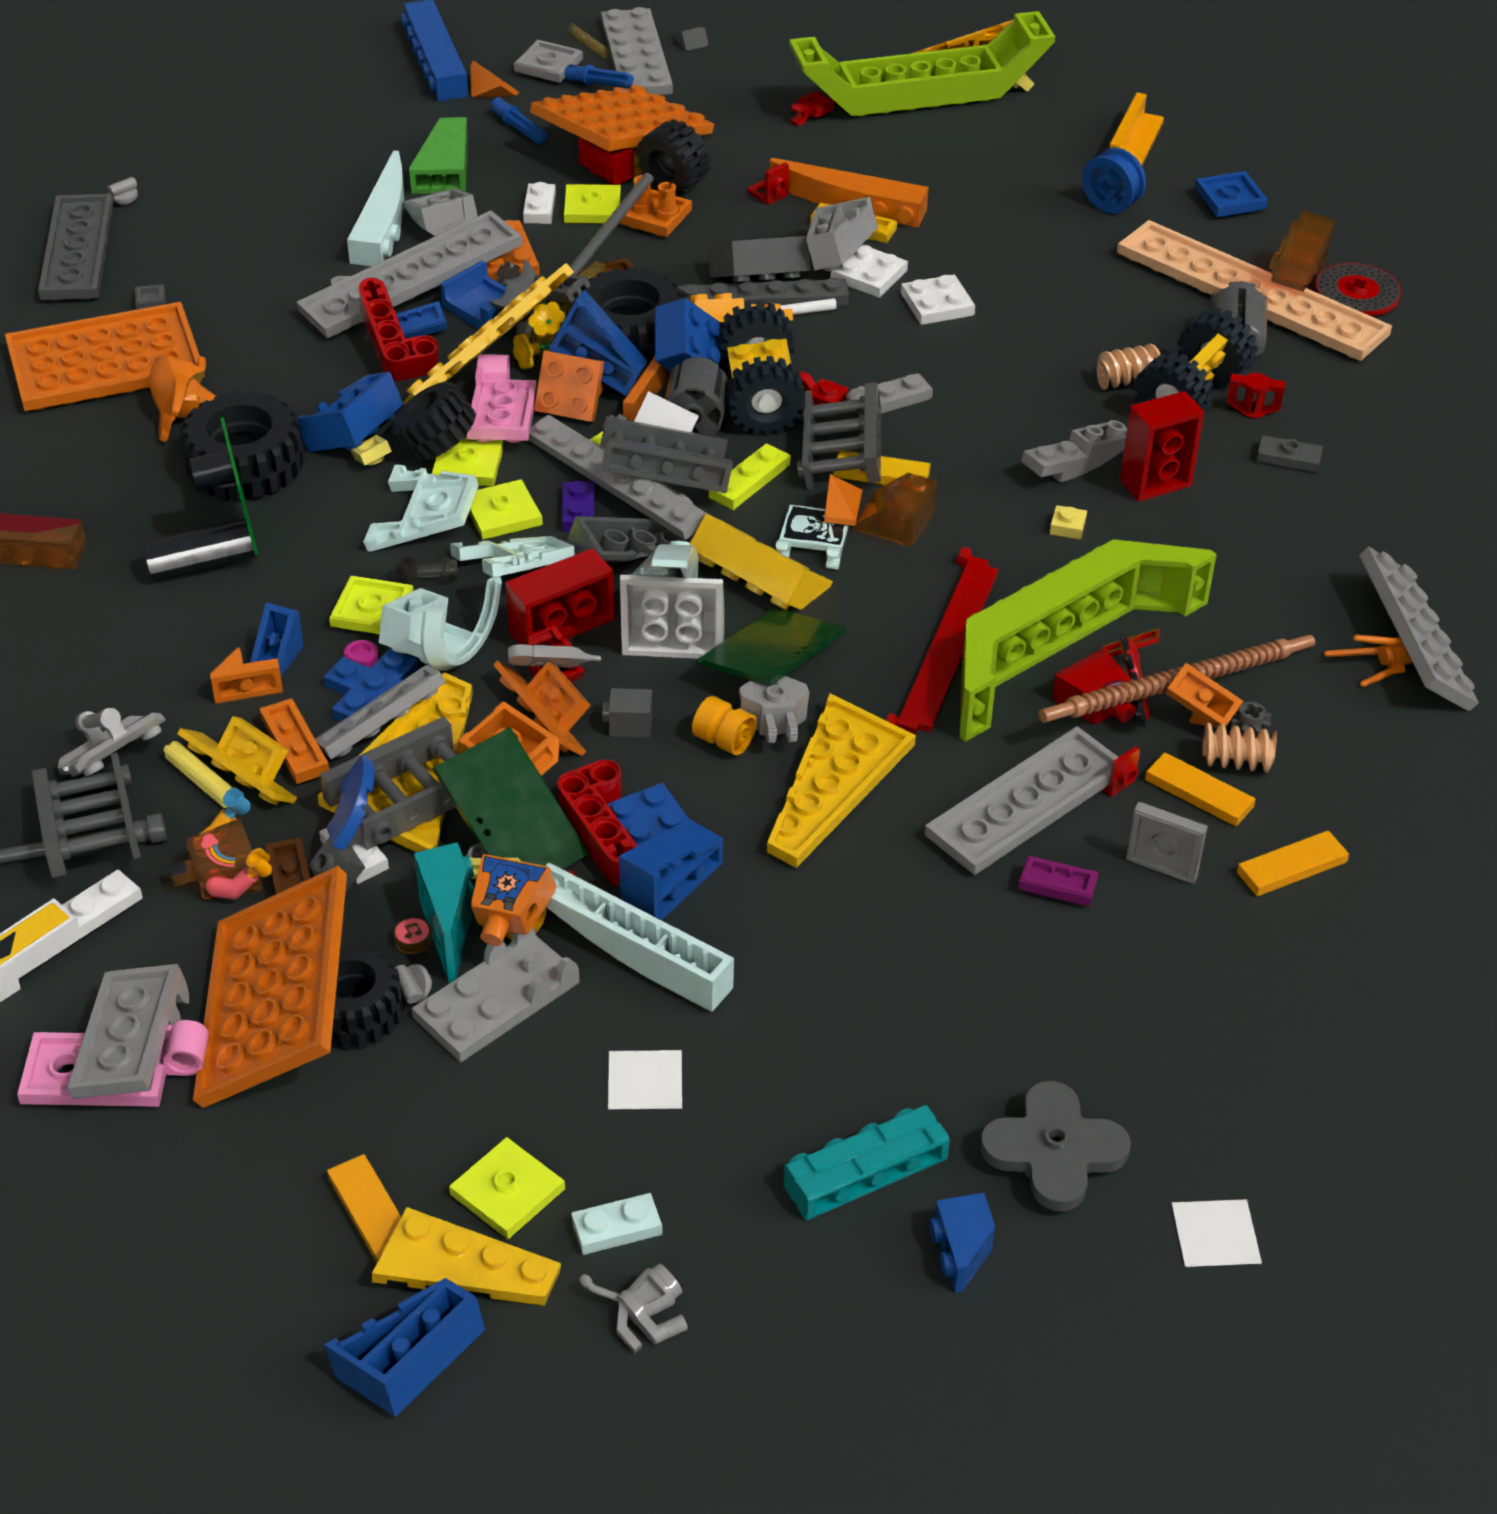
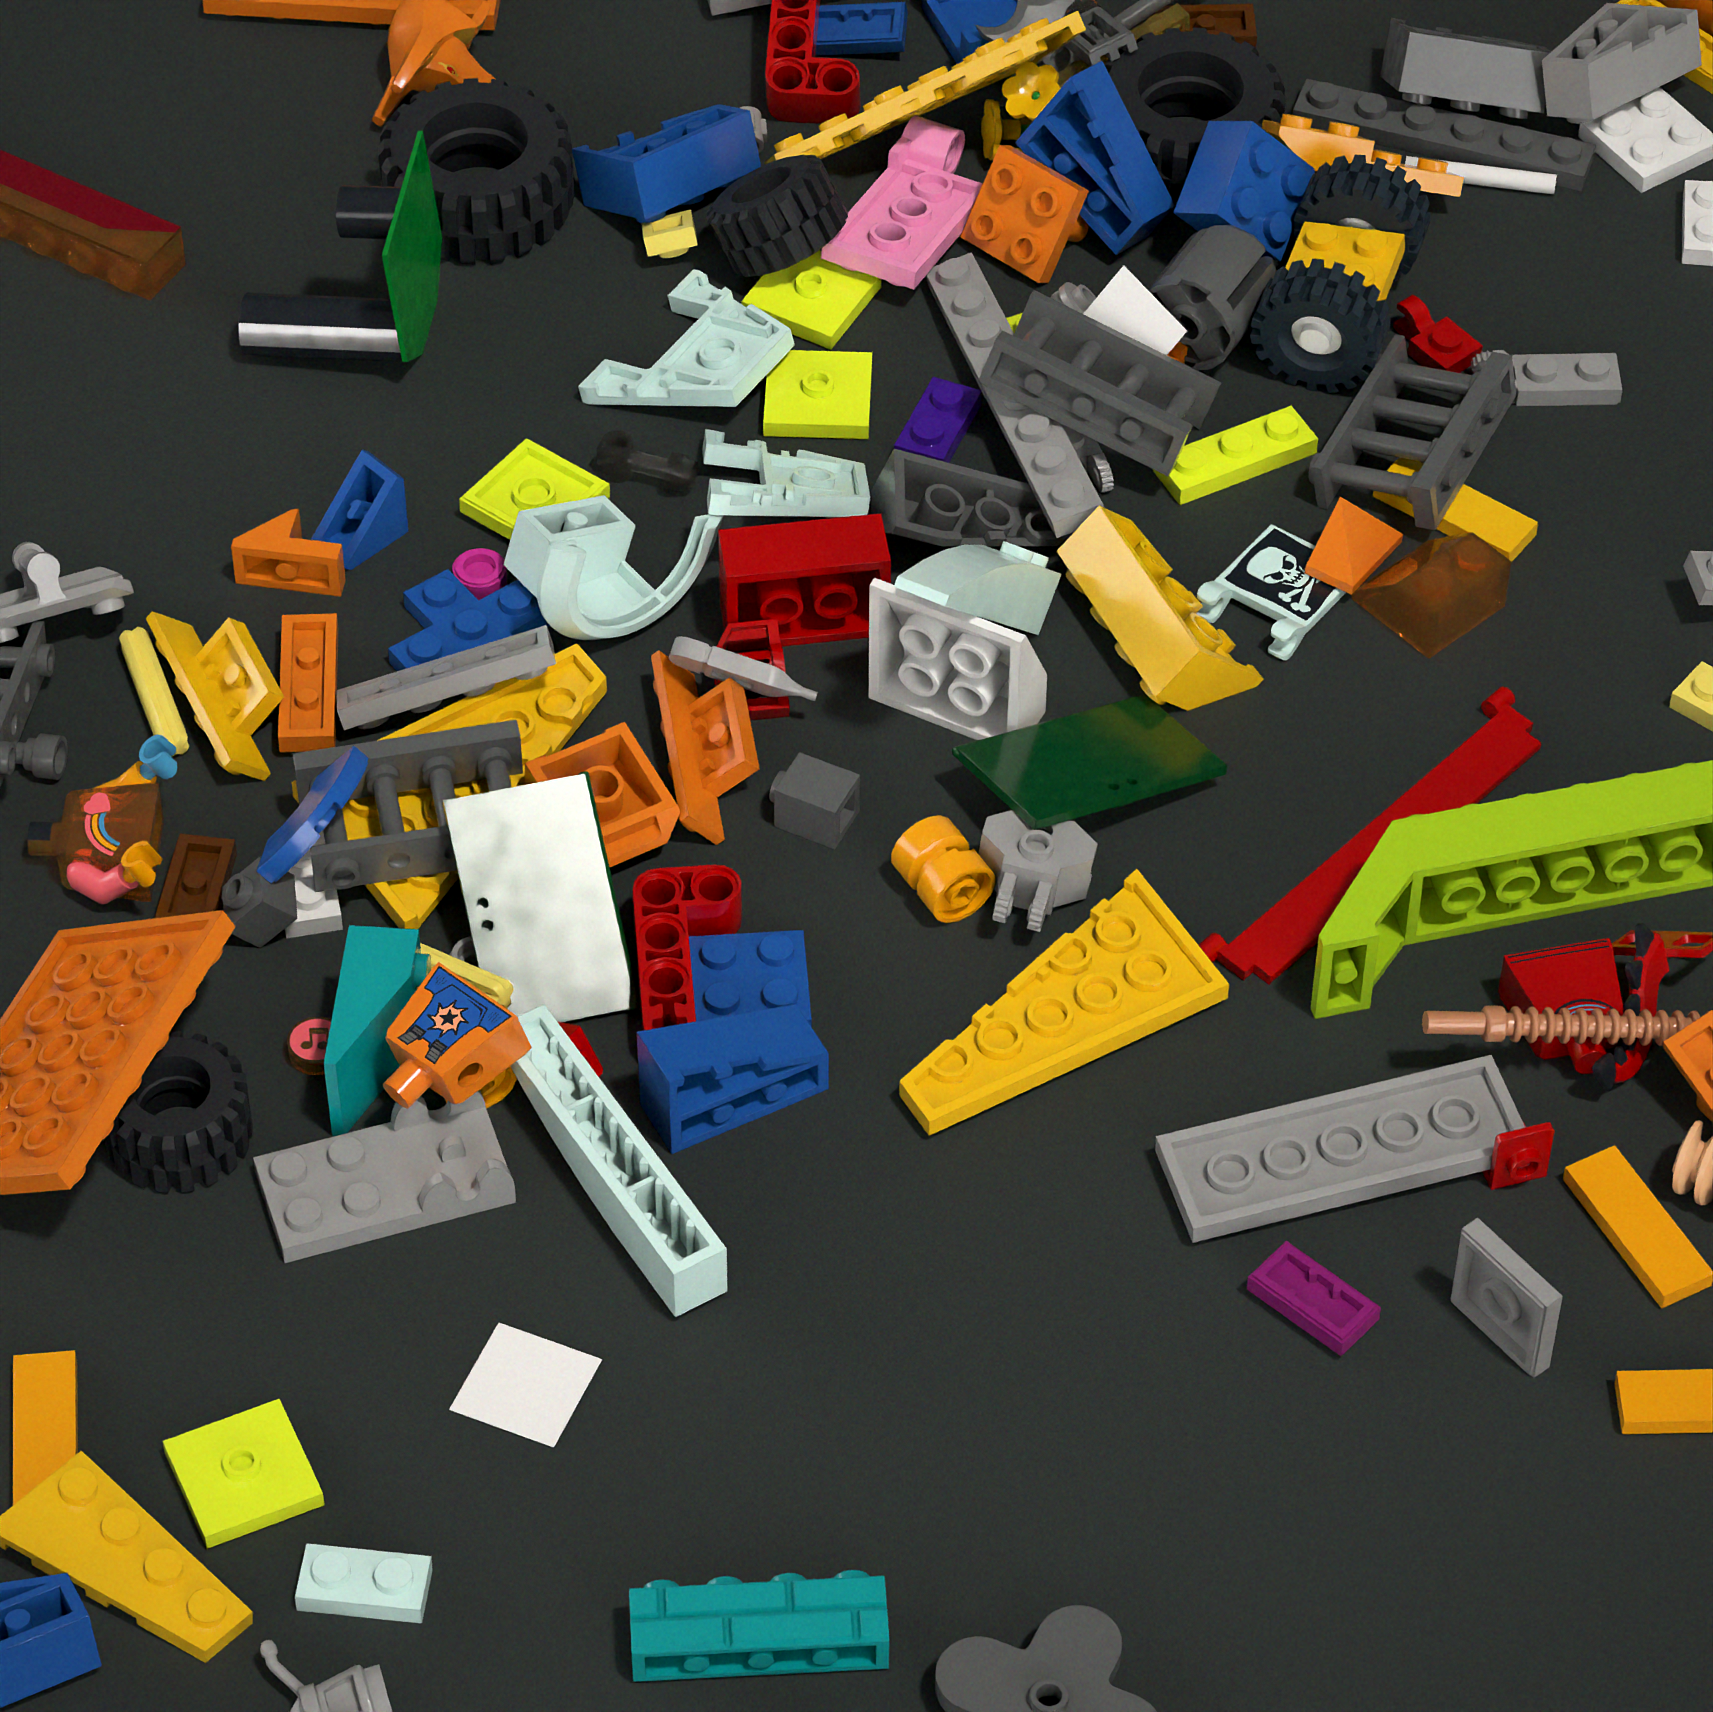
camera: 25 degrees right, 5 degrees up
(414, 982) = (273, 1119): light grey plate -> none
(651, 380) = (1145, 254): orange tile -> none

